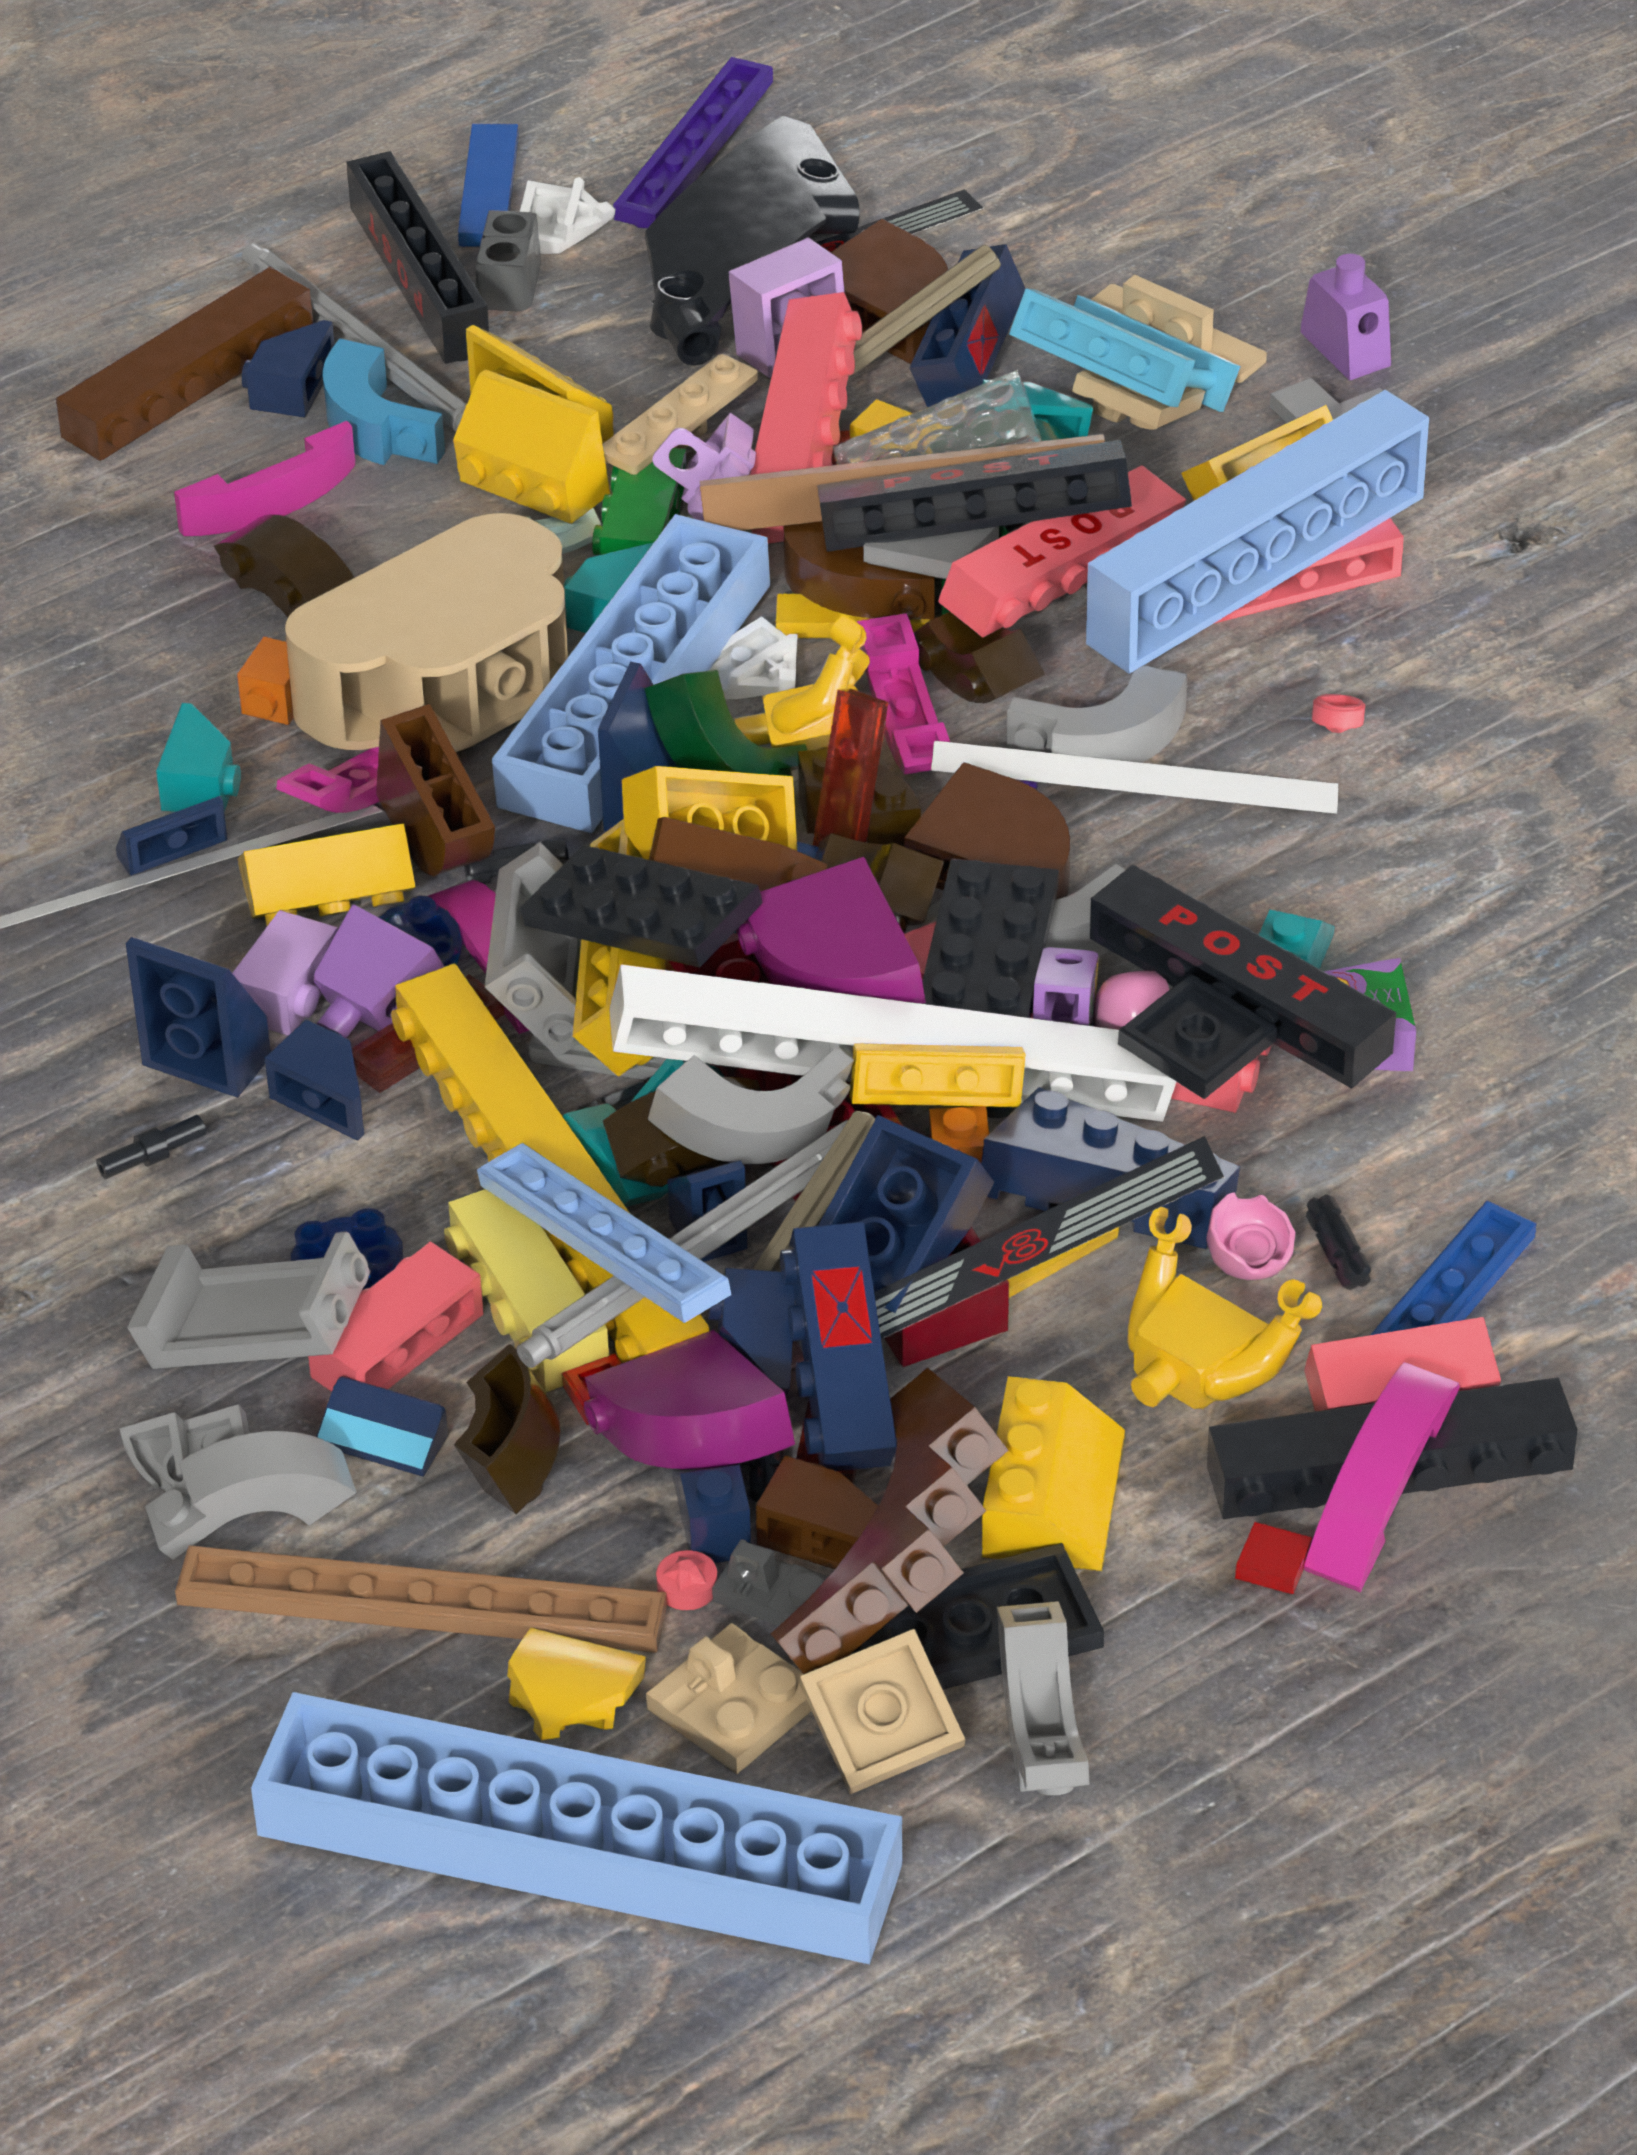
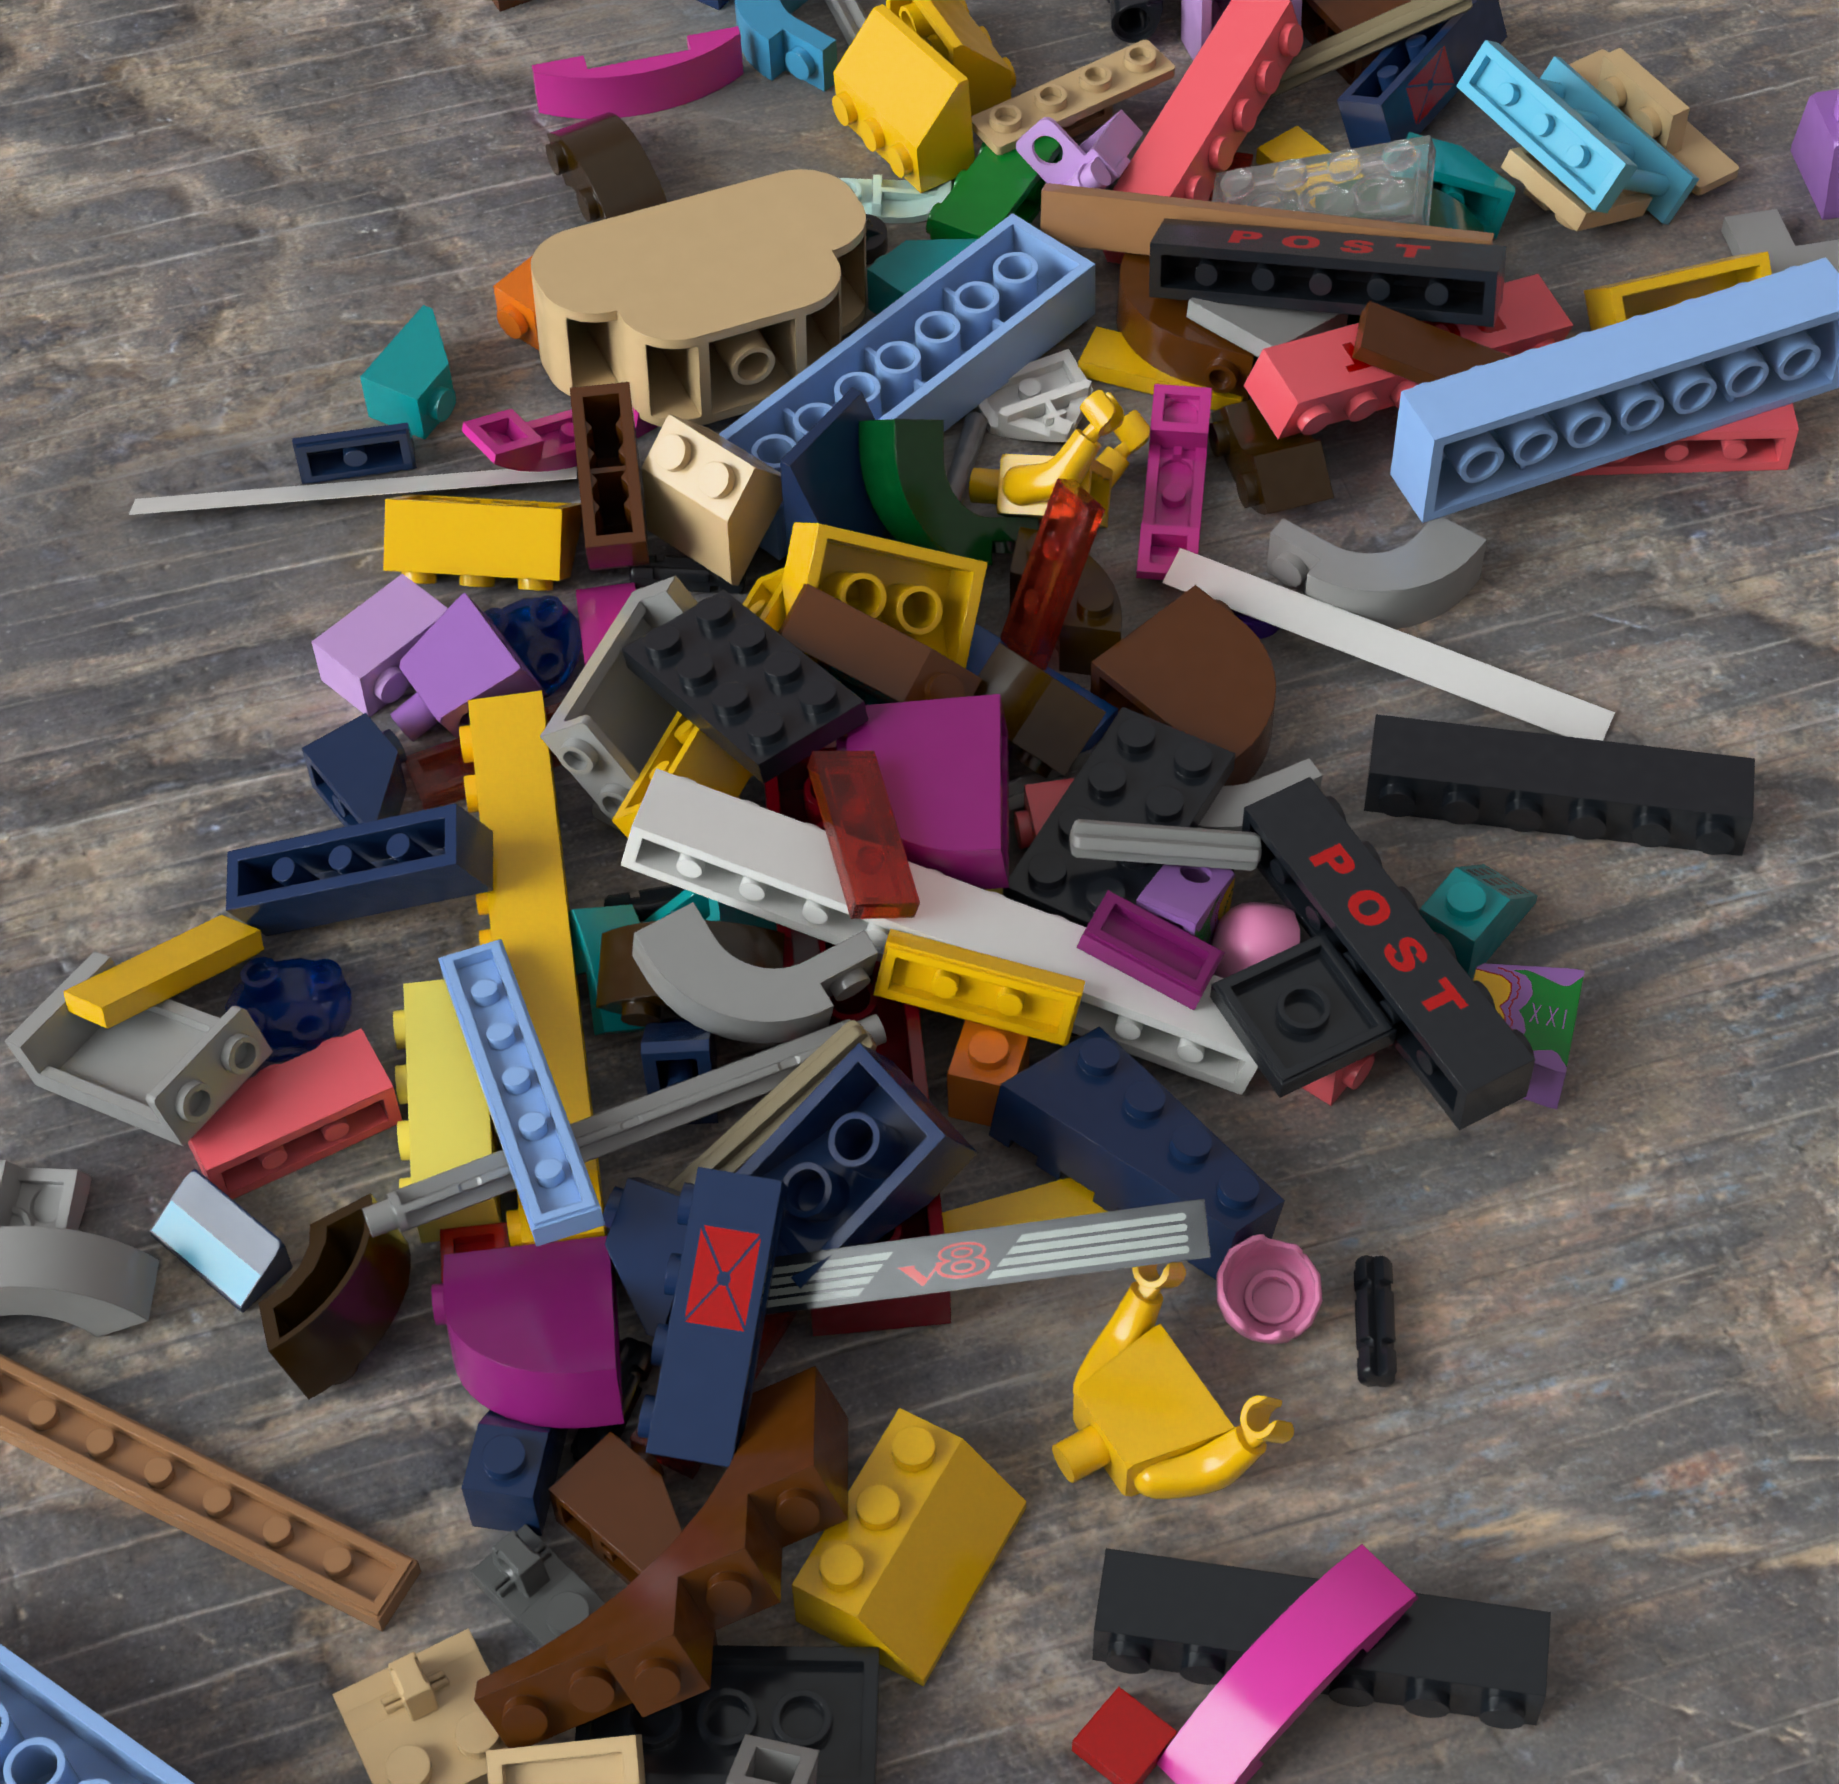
camera: 20 degrees right, 10 degrees up
(151, 1146) = (158, 814): black bar -> none
(195, 1019) = (252, 685): dark blue slope -> none
(233, 1247) = (163, 971): none -> yellow tile
(372, 1127) = (360, 870): none -> dark blue brick
(530, 784) = (708, 497): none -> tan slope
(570, 1681) = (261, 1647): yellow slope -> none
(686, 1579) = (450, 1548): coral tile -> none
(804, 978) = (863, 835): none -> clear red tile
(1038, 941) = (1165, 844): none -> light grey axle
(1059, 1017) = (1150, 950): none -> magenta tile
(1069, 536) = (1414, 347): none -> reddish brown tile
(1320, 840) = (1560, 785): none -> black brick
(1338, 712) = (1647, 624): coral tile -> none
(1360, 1367) = (1422, 1540): coral brick -> none
(1463, 1270) = (1484, 1423): blue tile -> none

